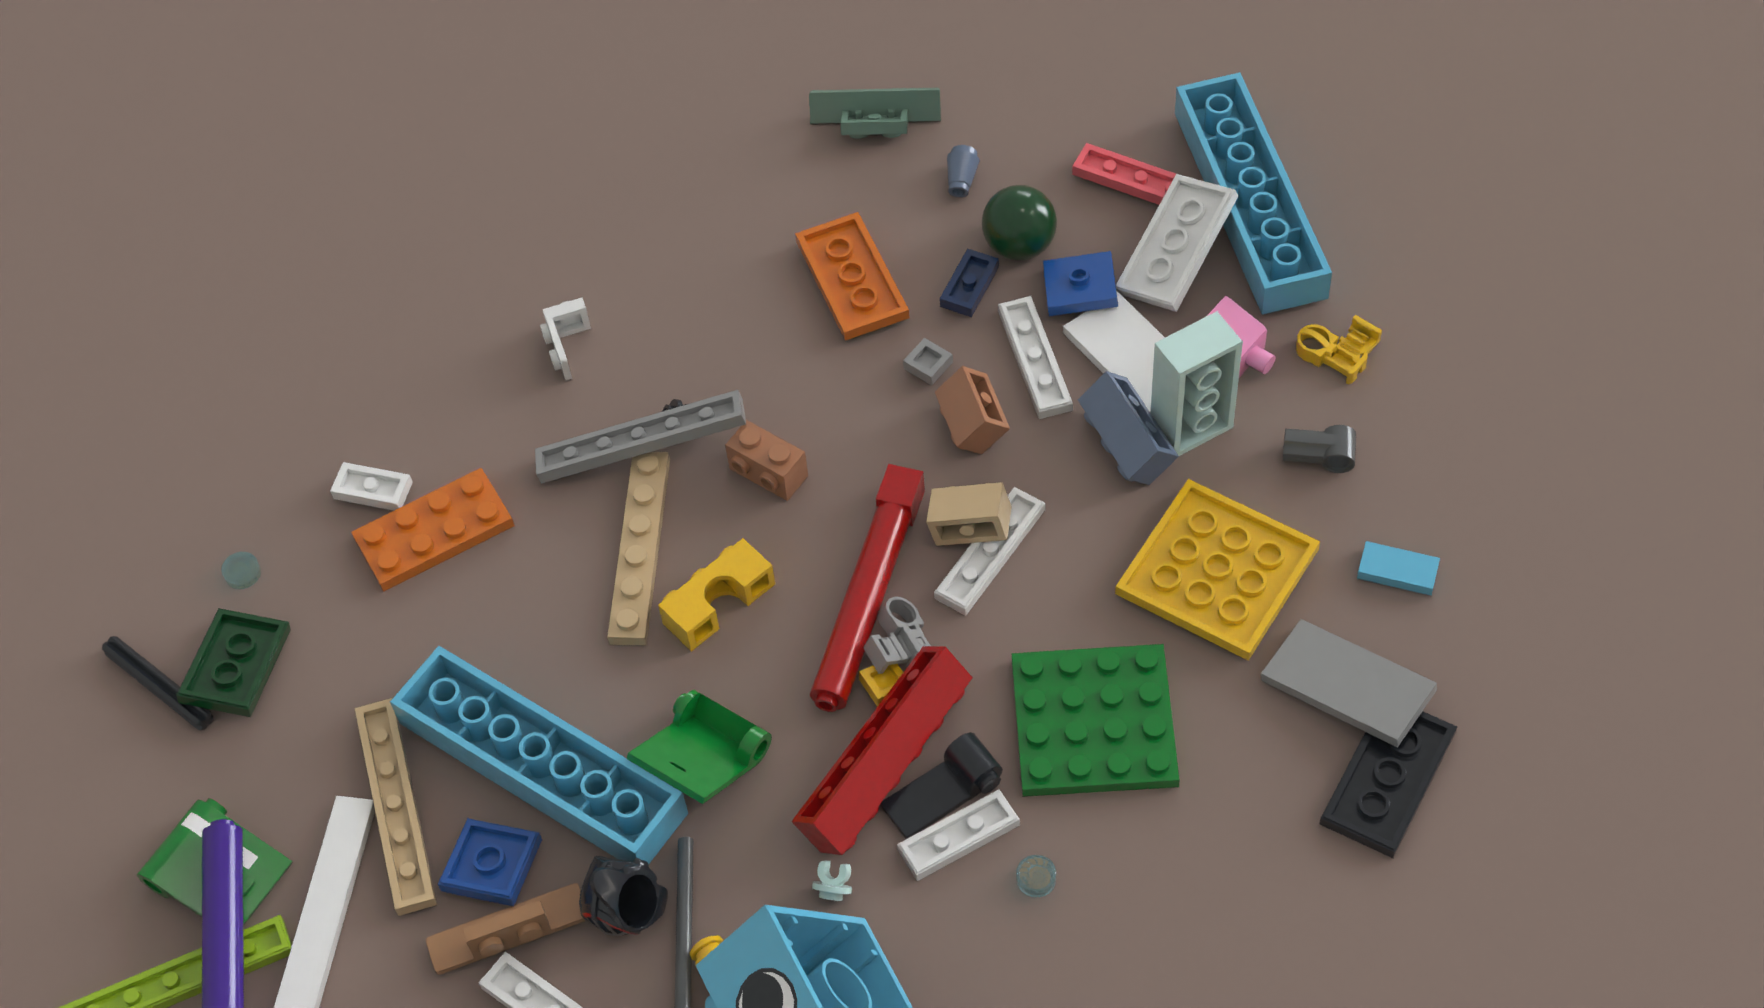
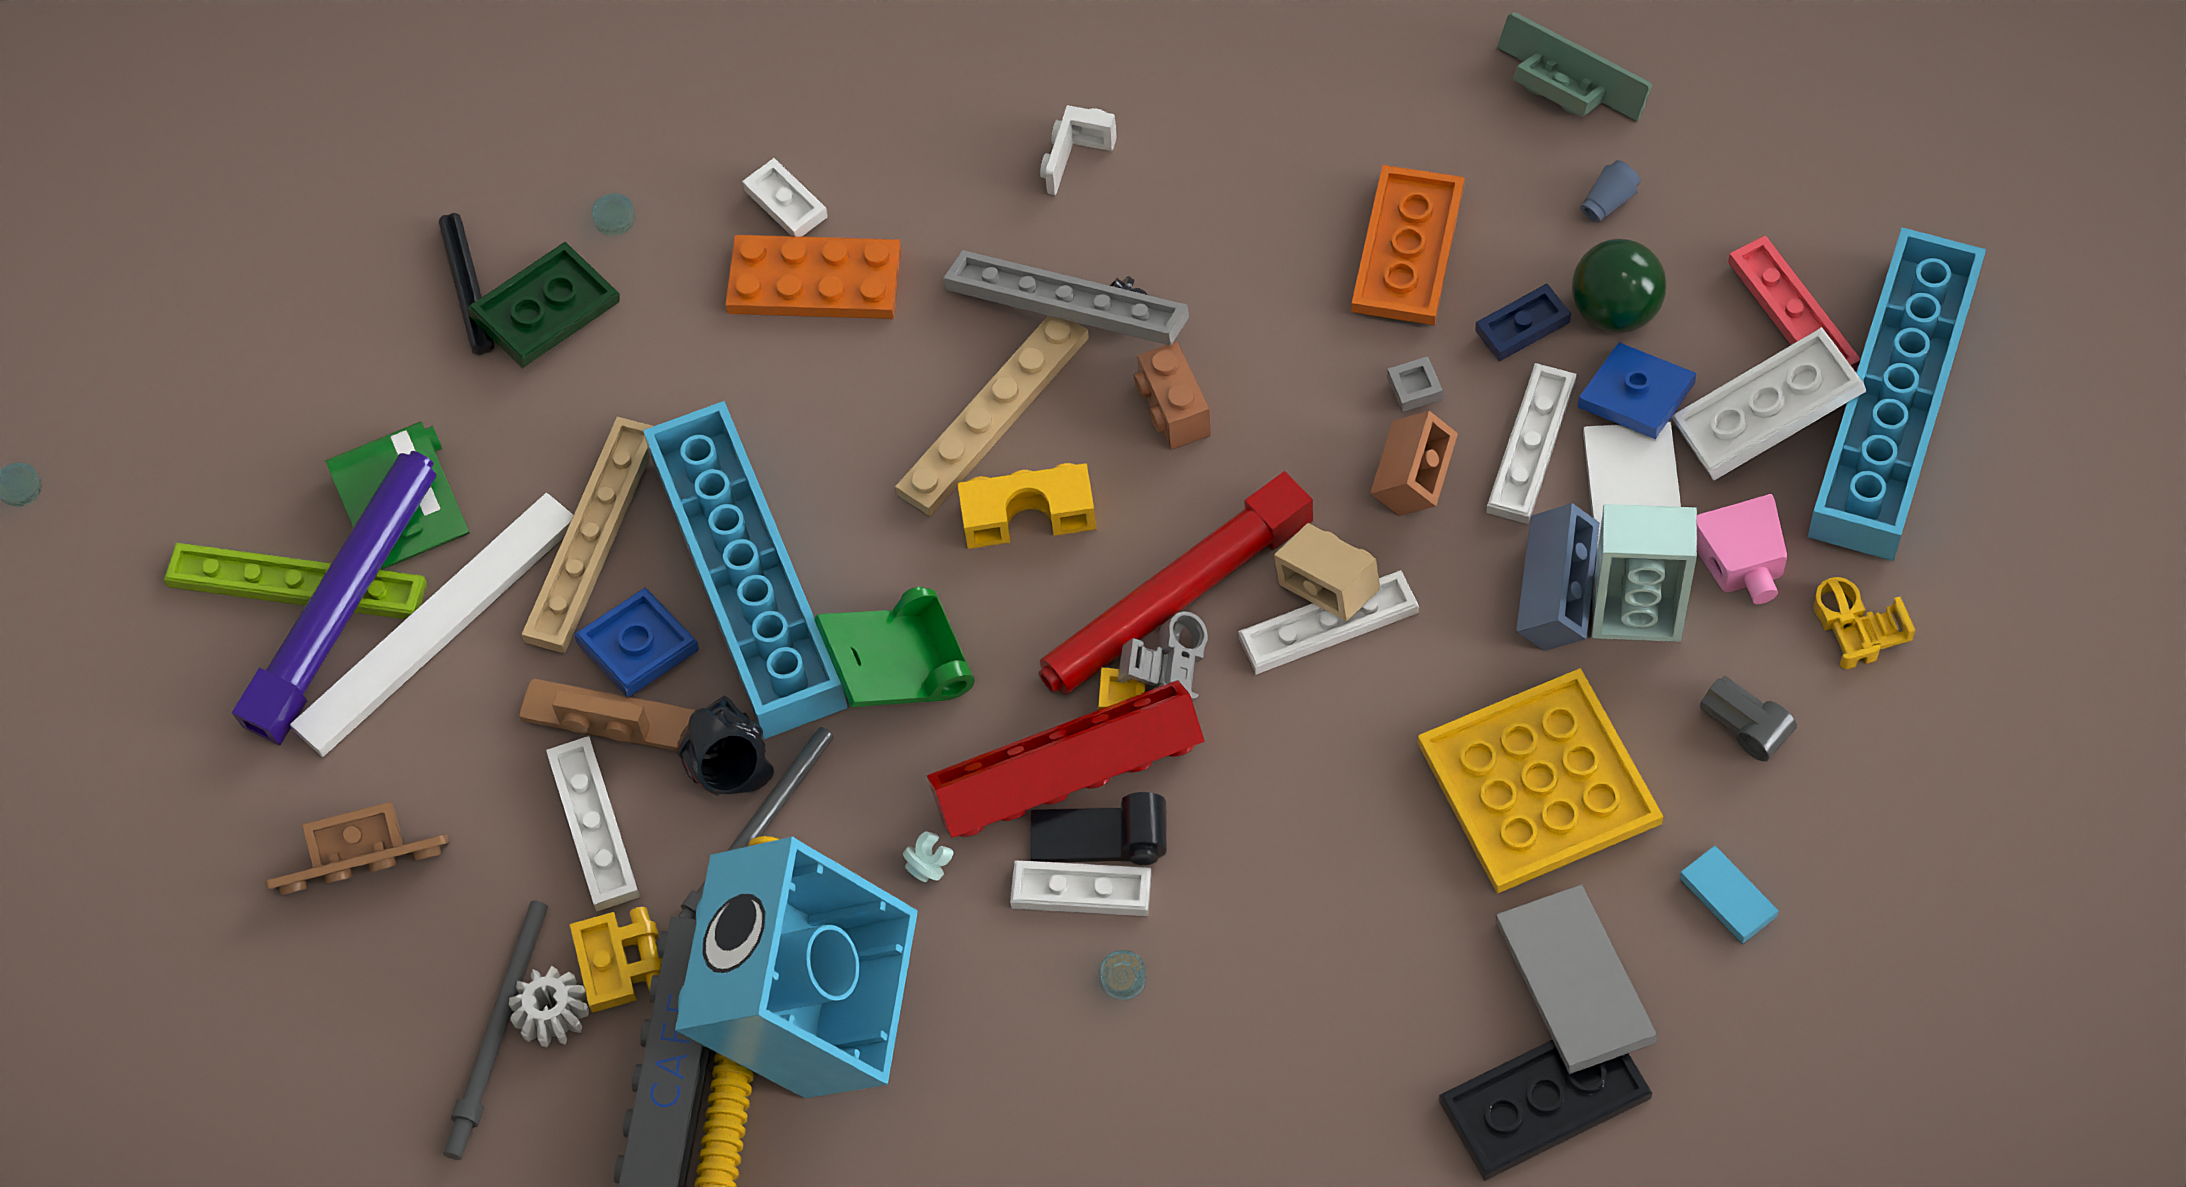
camera: 35 degrees right, 5 degrees up
(1094, 720) = (1297, 857): green plate -> none

